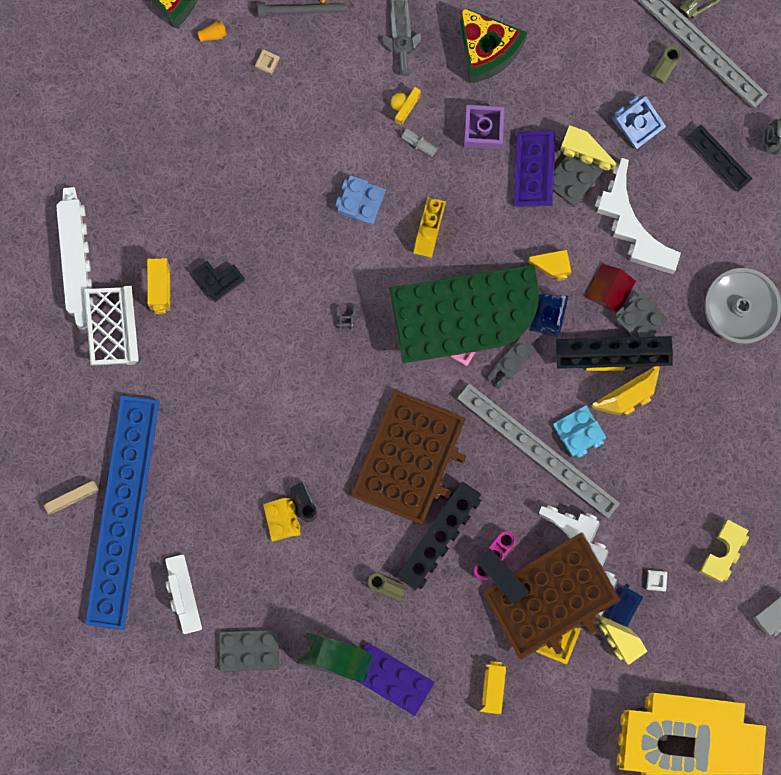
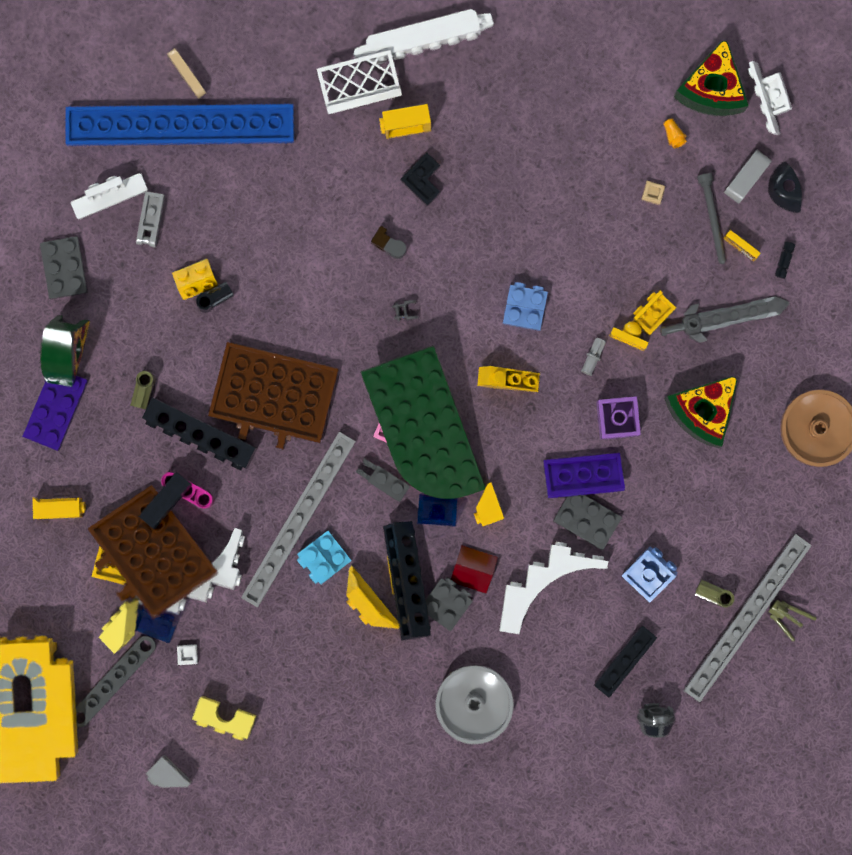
camera: 85 degrees right, 5 degrees up
(213, 555) = (150, 218): none -> light grey plate
(278, 322) = (392, 247): none -> leg
(386, 78) = (654, 312): none -> yellow bracket
(582, 145) = (614, 519): light yellow slope -> none
(672, 656) = (114, 680): none -> dark grey plate

